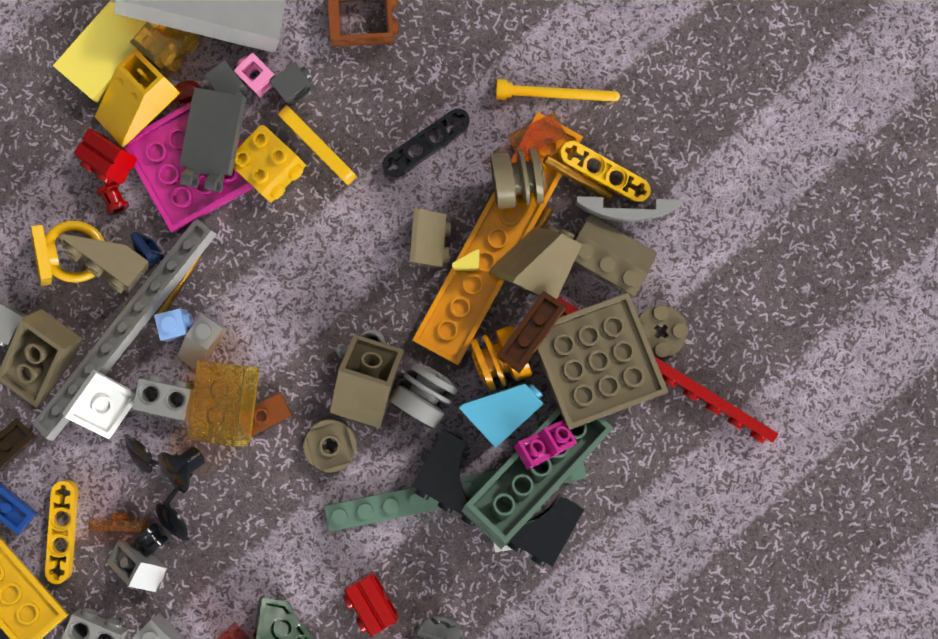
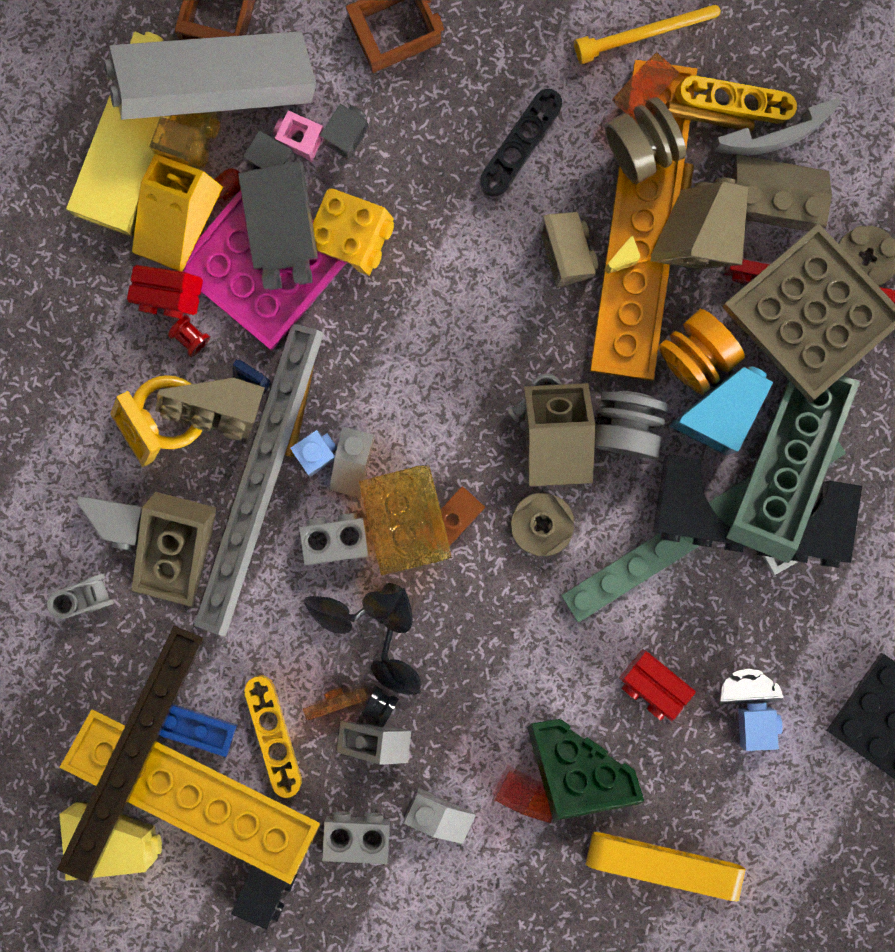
camera: 20 degrees left, 0 degrees up
(100, 404) = (266, 573): white plate -> none
(317, 145) = (399, 190): yellow beam -> none
(531, 332) = (732, 304): reddish brown plate -> none
(545, 444) = (793, 426): dark pink slope -> none

